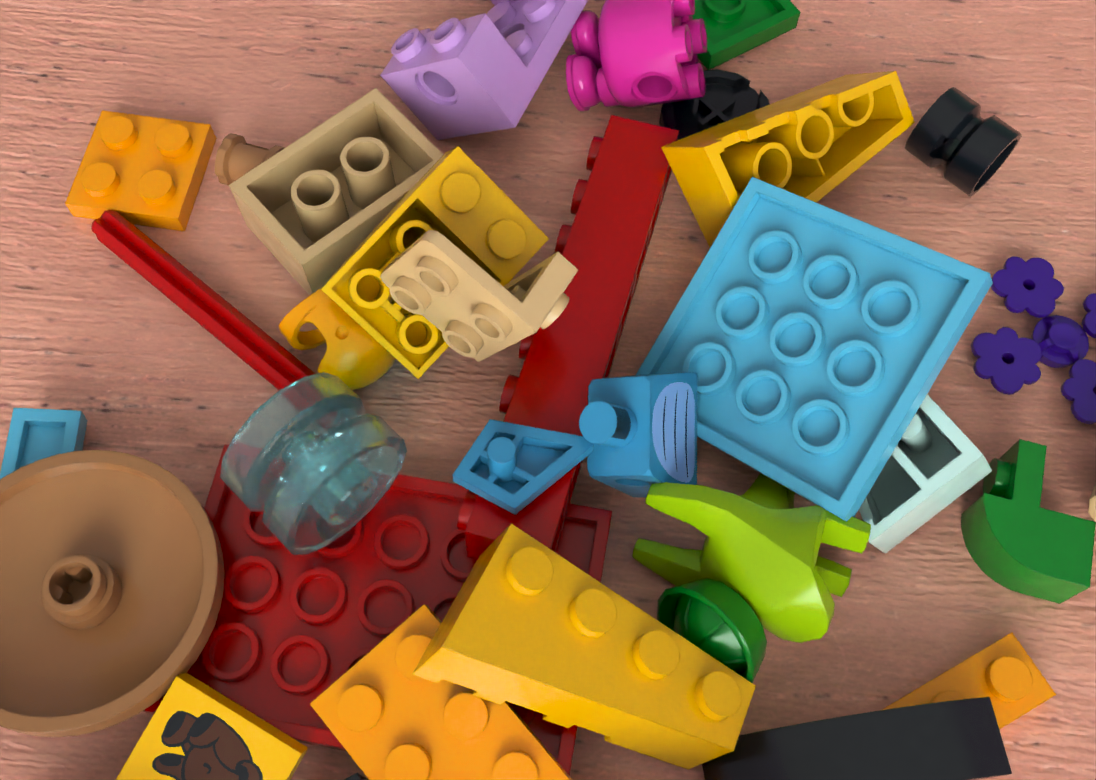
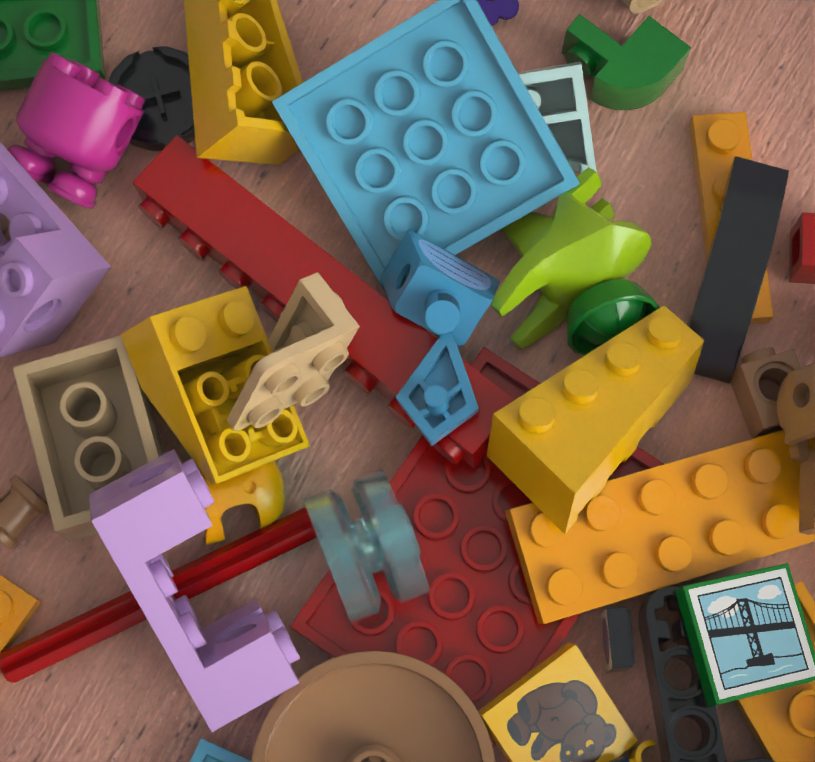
camera: 65 degrees left, 10 degrees up
(139, 366) = (227, 663): none -> lavender plate

